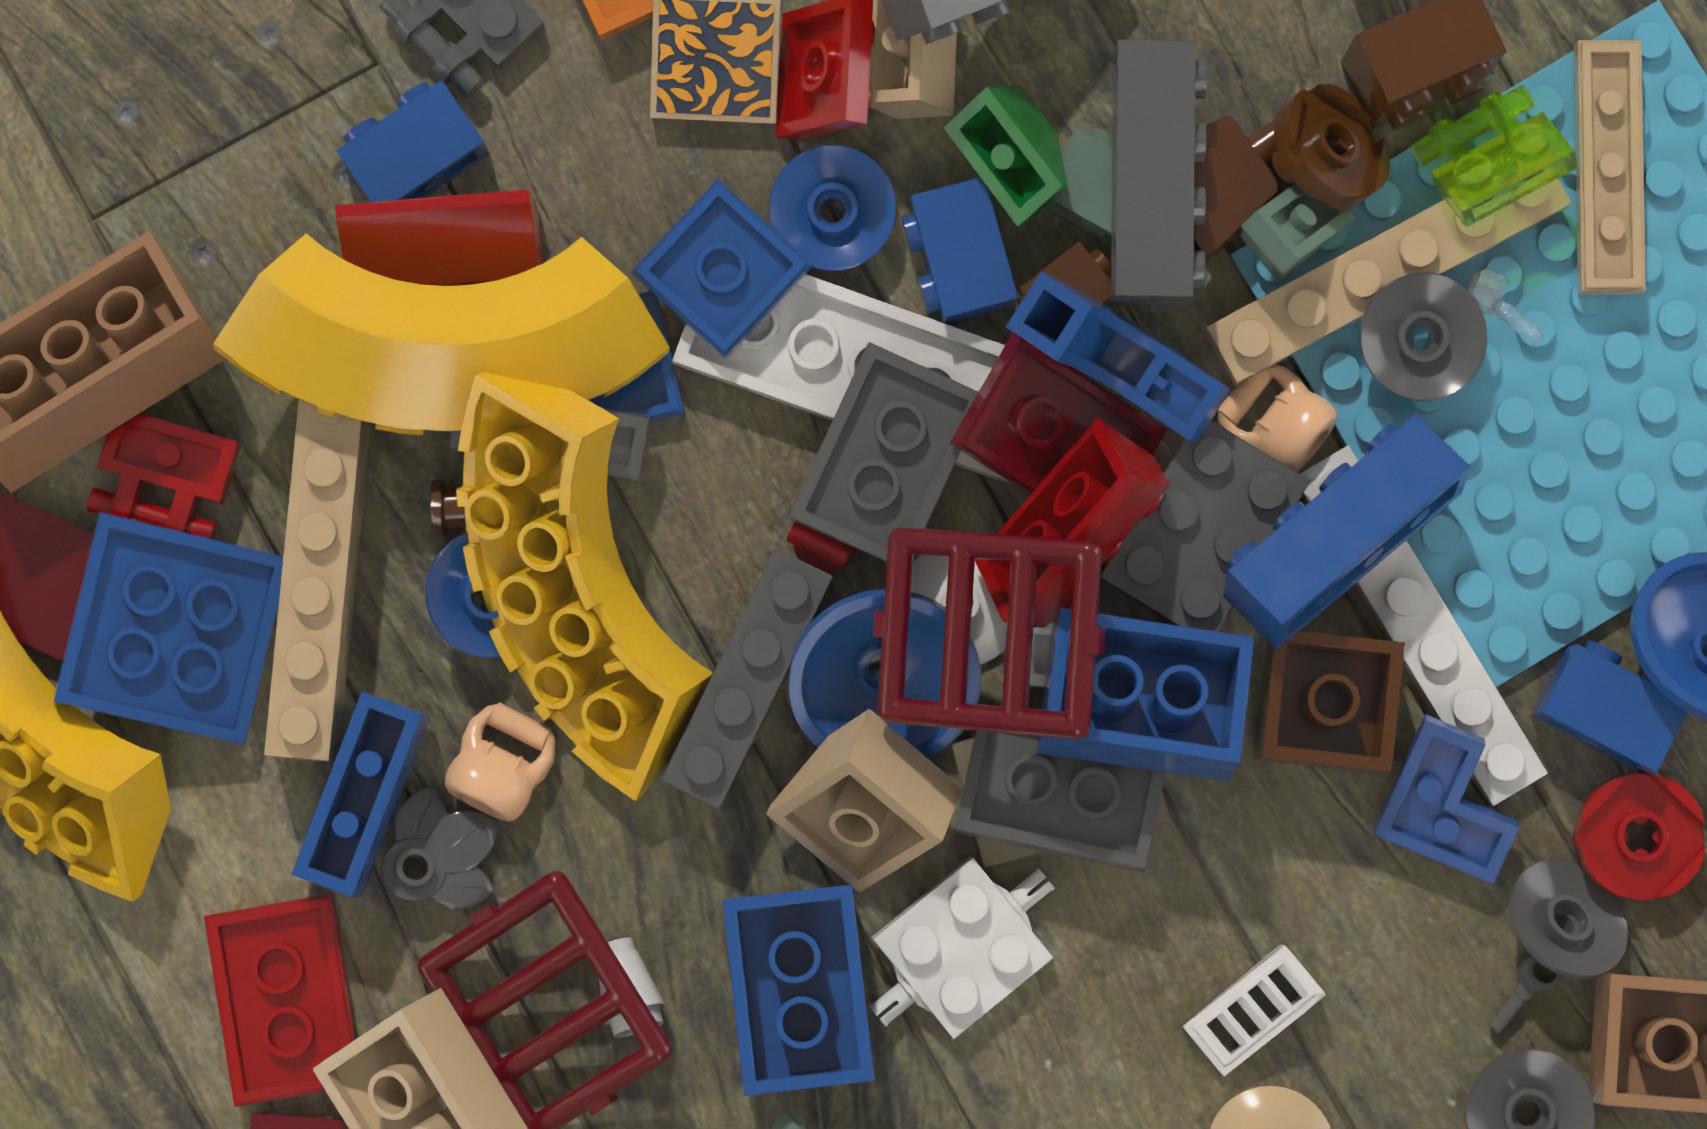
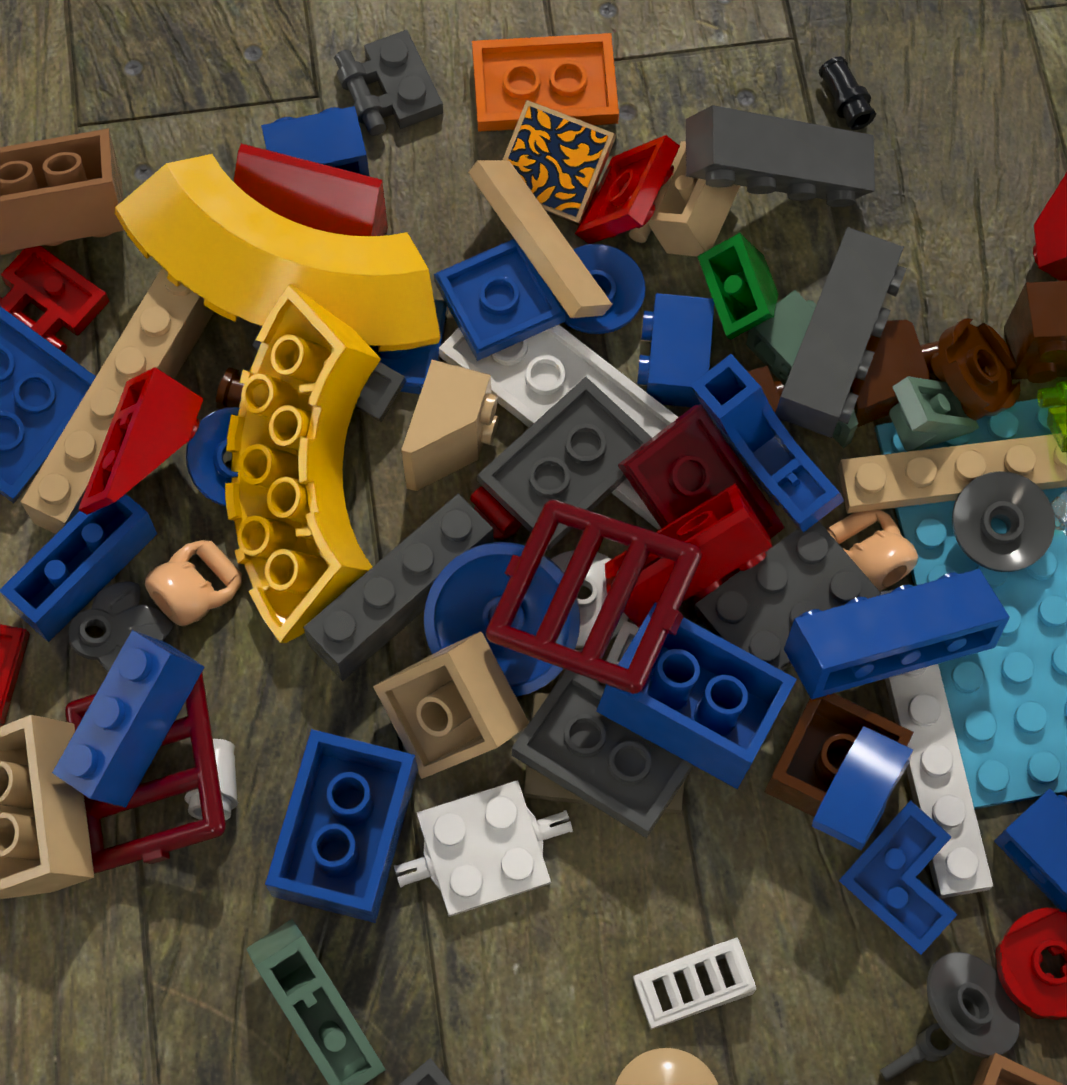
camera: 20 degrees right, 15 degrees down
(379, 624) = (147, 428): none -> red slope
(512, 970) = (128, 719): none -> blue brick
(728, 460) = (448, 424): none -> tan slope
(742, 175) = (540, 238): none -> tan tile
(1370, 737) = (862, 788): none -> blue slope

